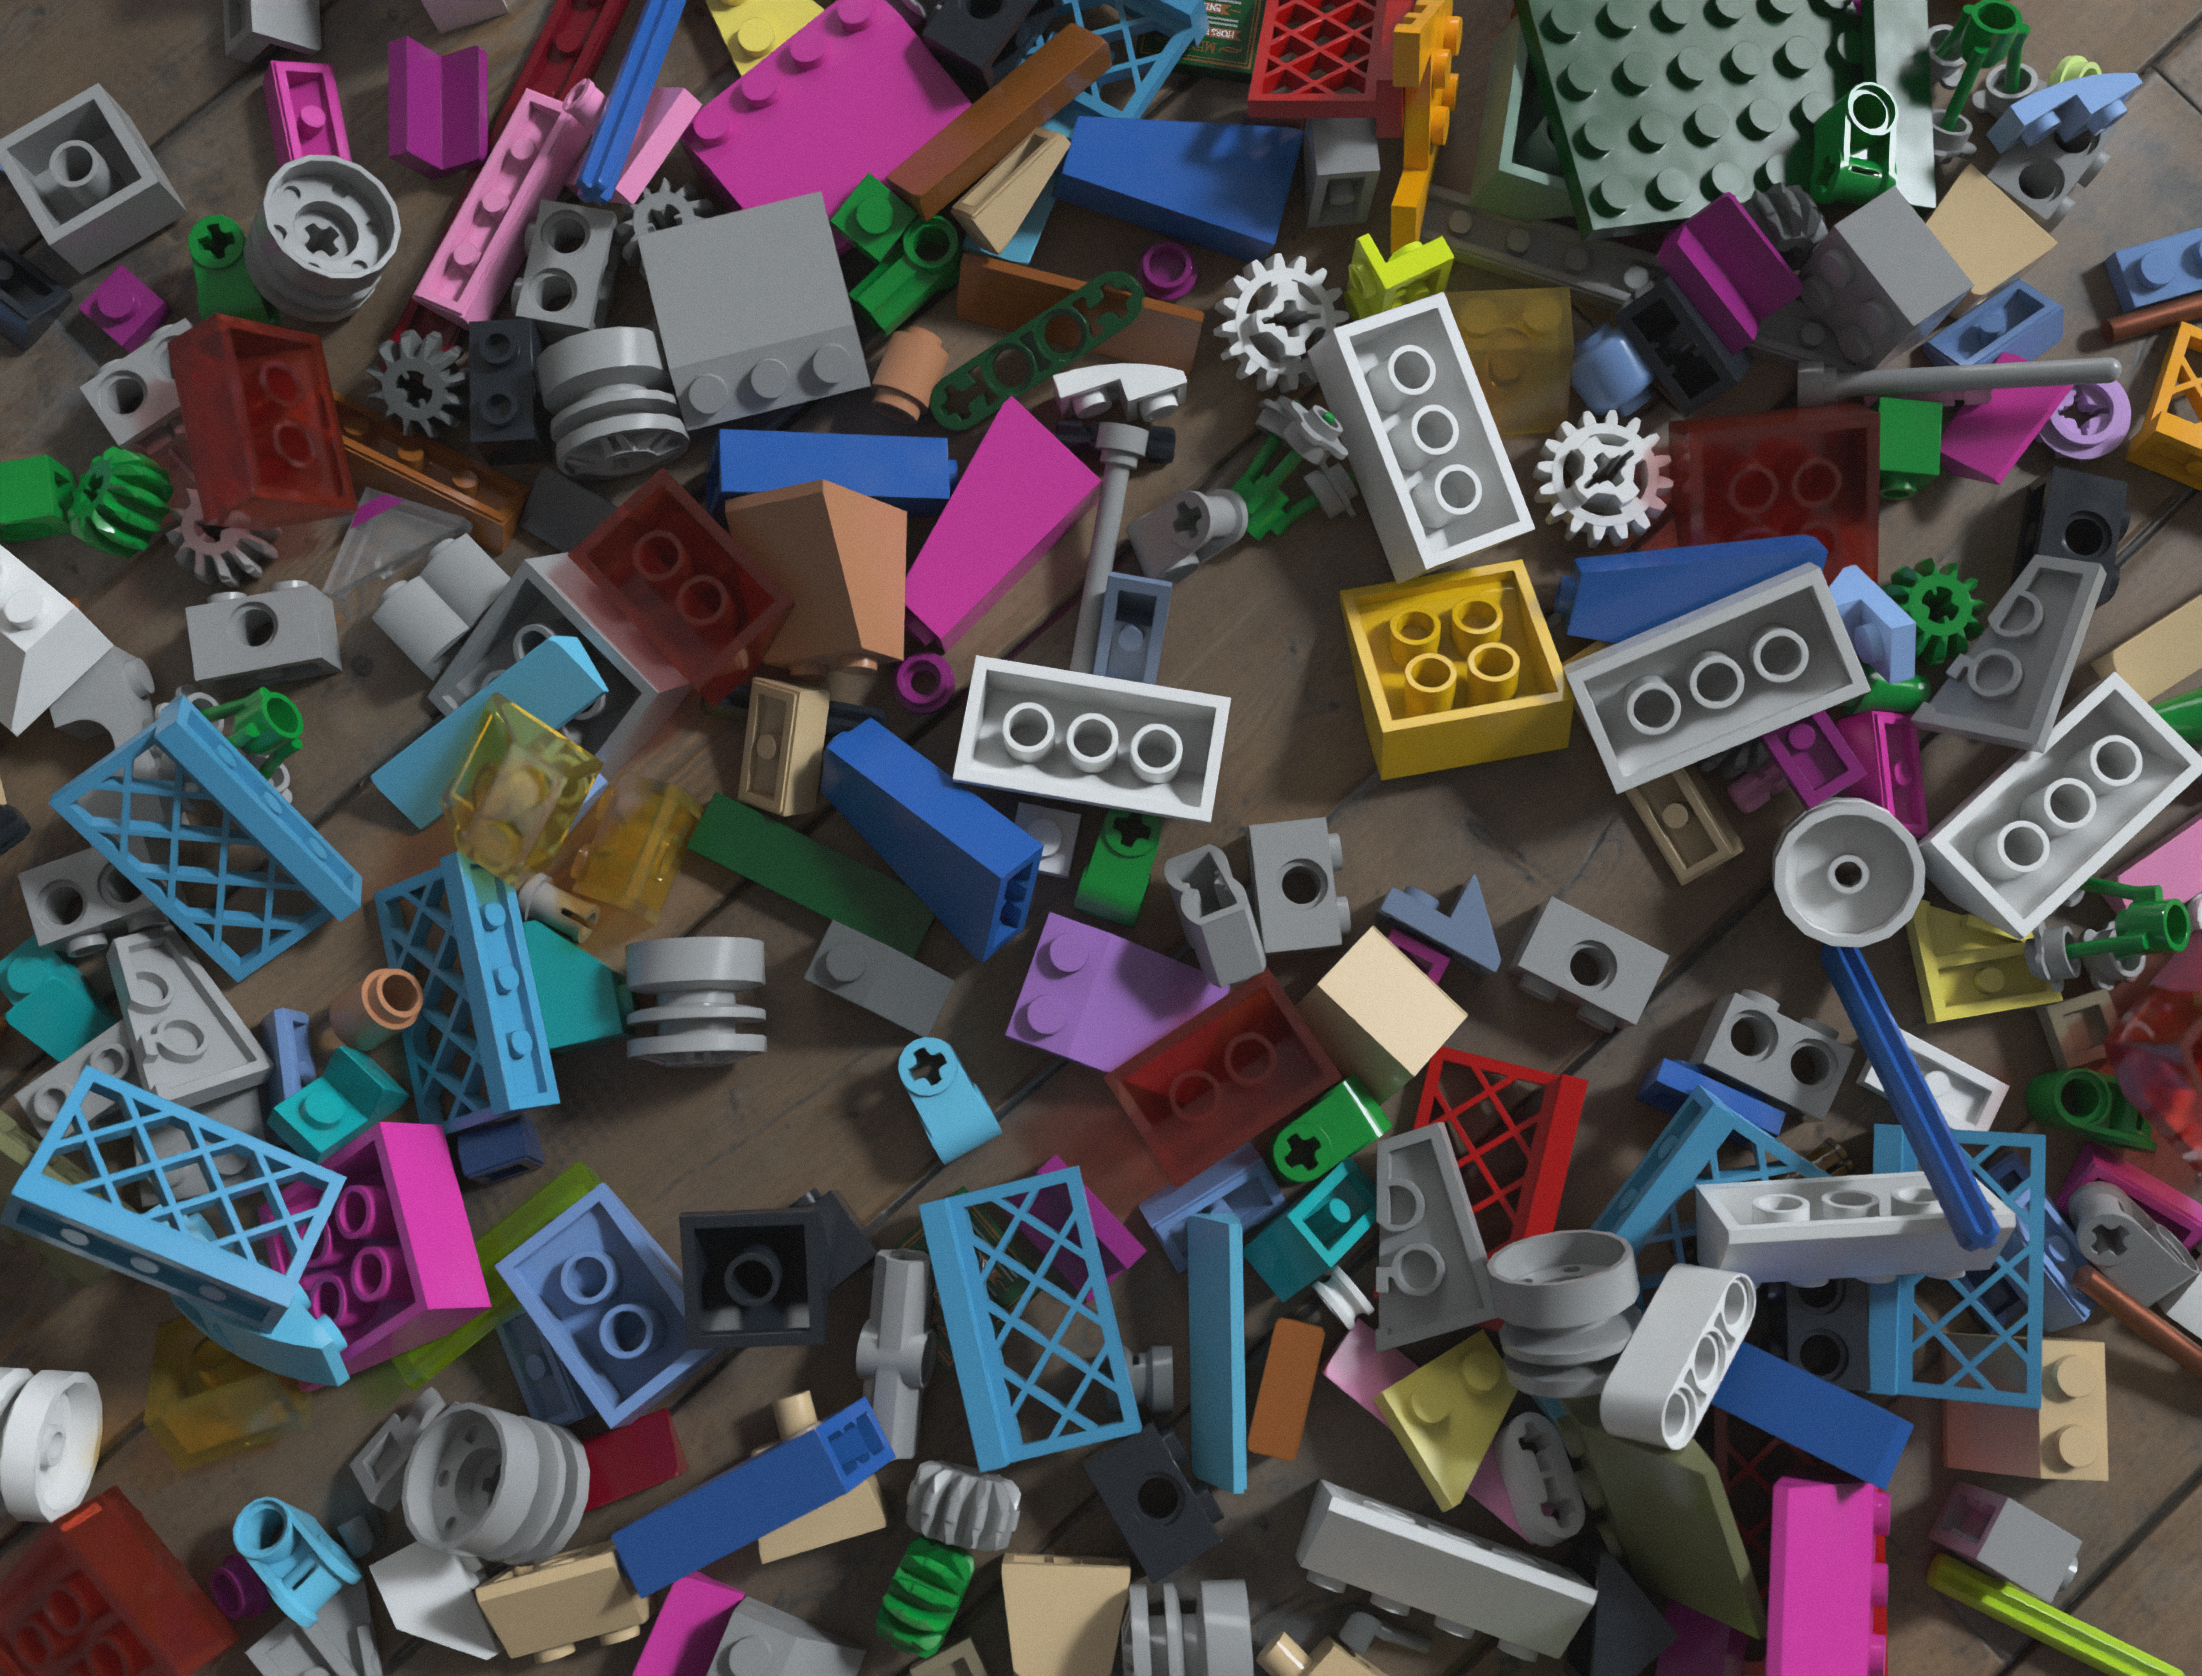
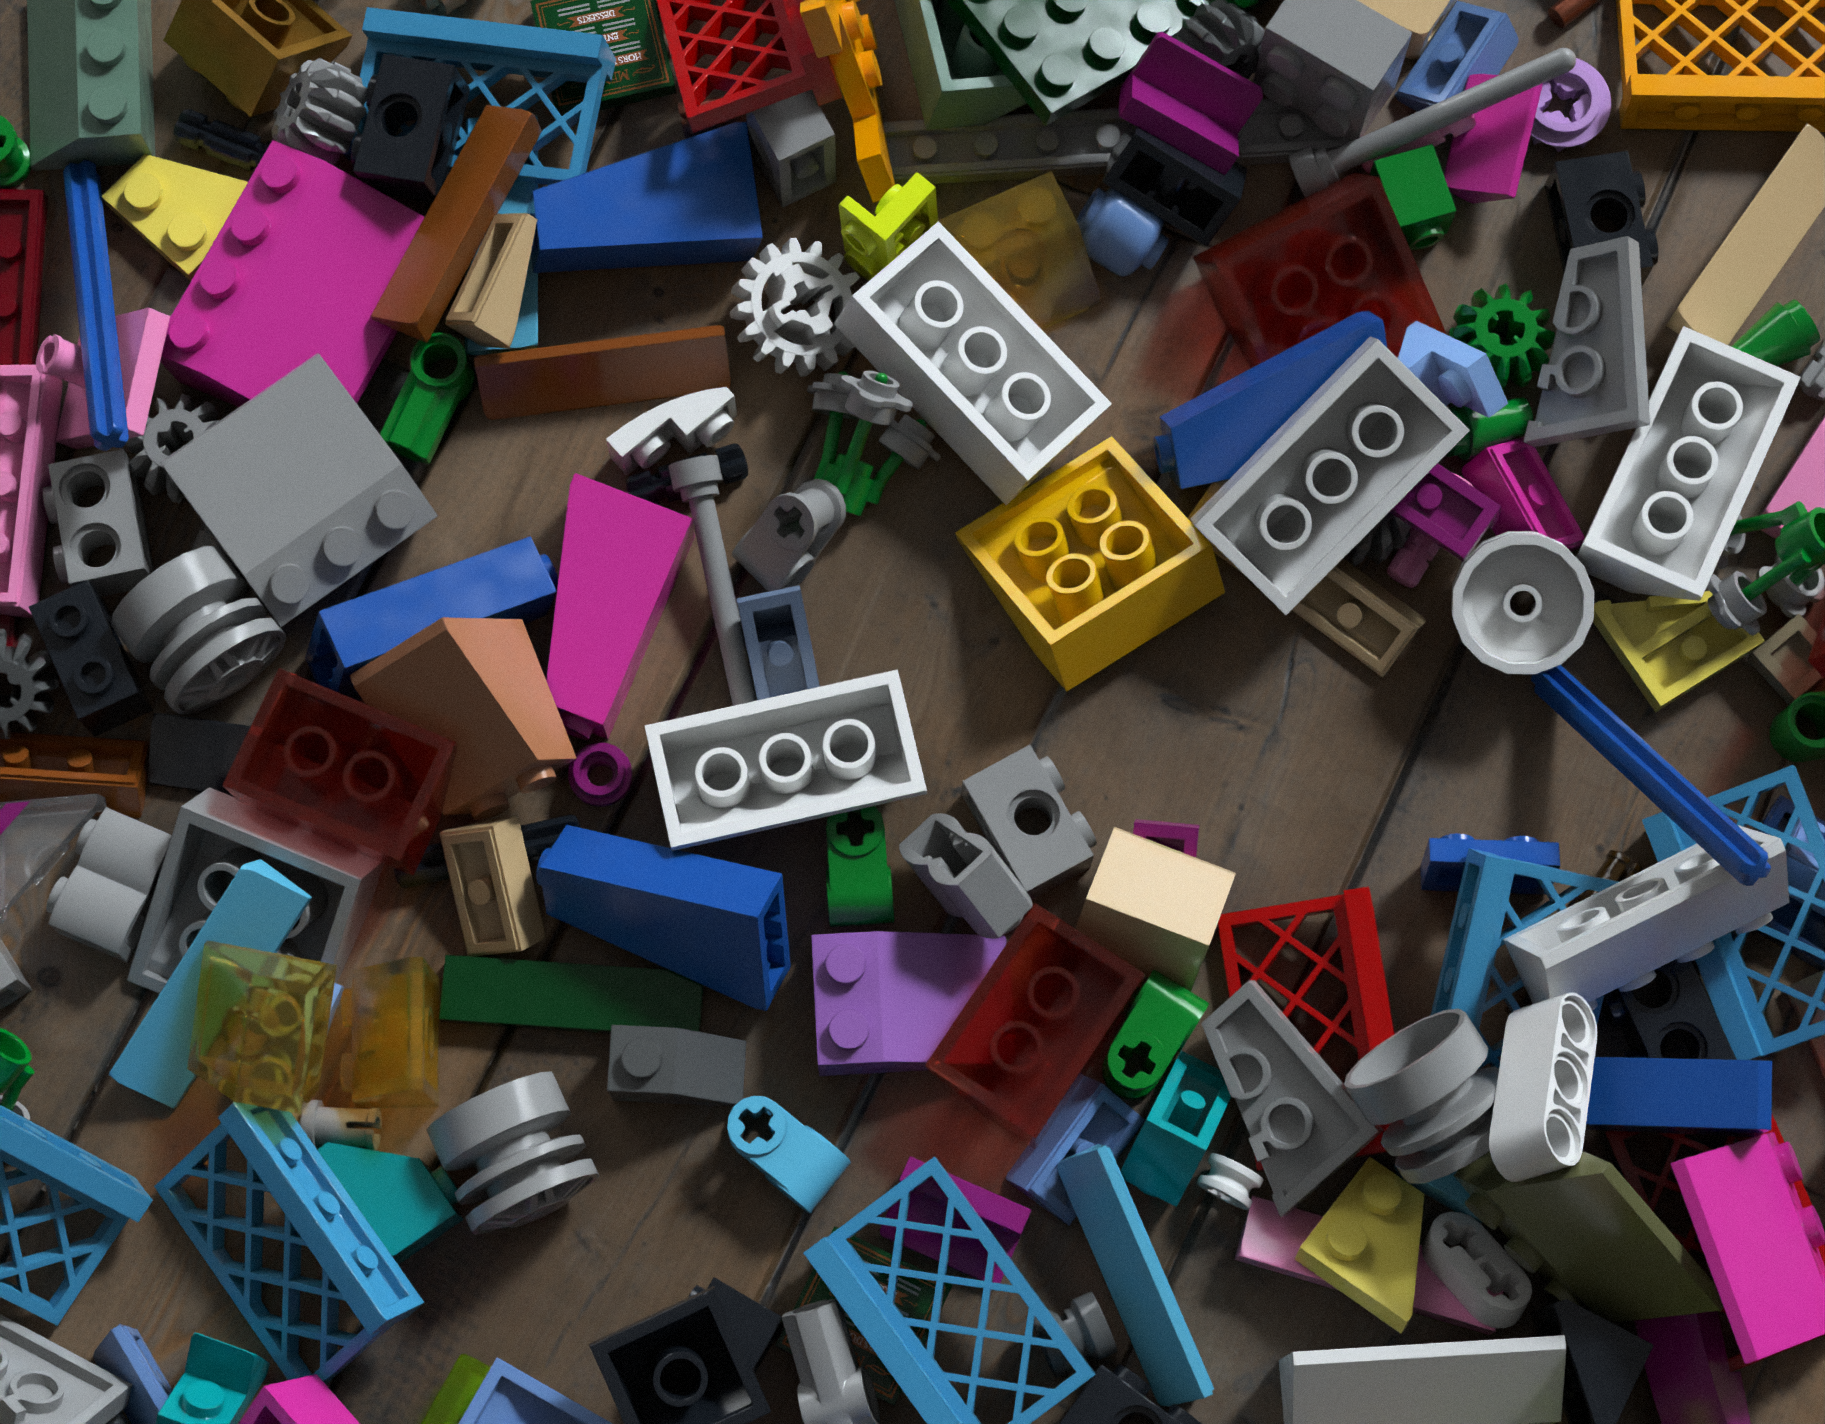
camera: 25 degrees left, 5 degrees down
(376, 1008) = (208, 1289): nougat brick -> none
(500, 1150) = (381, 1376): dark blue brick -> none
(872, 219) = (375, 359): green plate -> none
(908, 375) = (466, 492): nougat brick -> none
(1033, 345) = (586, 426): dark green beam -> none
(1054, 830) = (786, 858): white plate -> none
(1167, 271) = (669, 300): magenta plate -> none
(1285, 1388) = (1212, 1283): dark orange slope -> none
(1461, 932) = (1199, 801): sand blue slope -> none
(1591, 458) = (1172, 348): white gear -> none
(1625, 966) = (1358, 767): light grey brick -> none
(1769, 1064) = (1527, 808): light grey brick -> none
(1963, 1093) = (1705, 759): white plate -> none

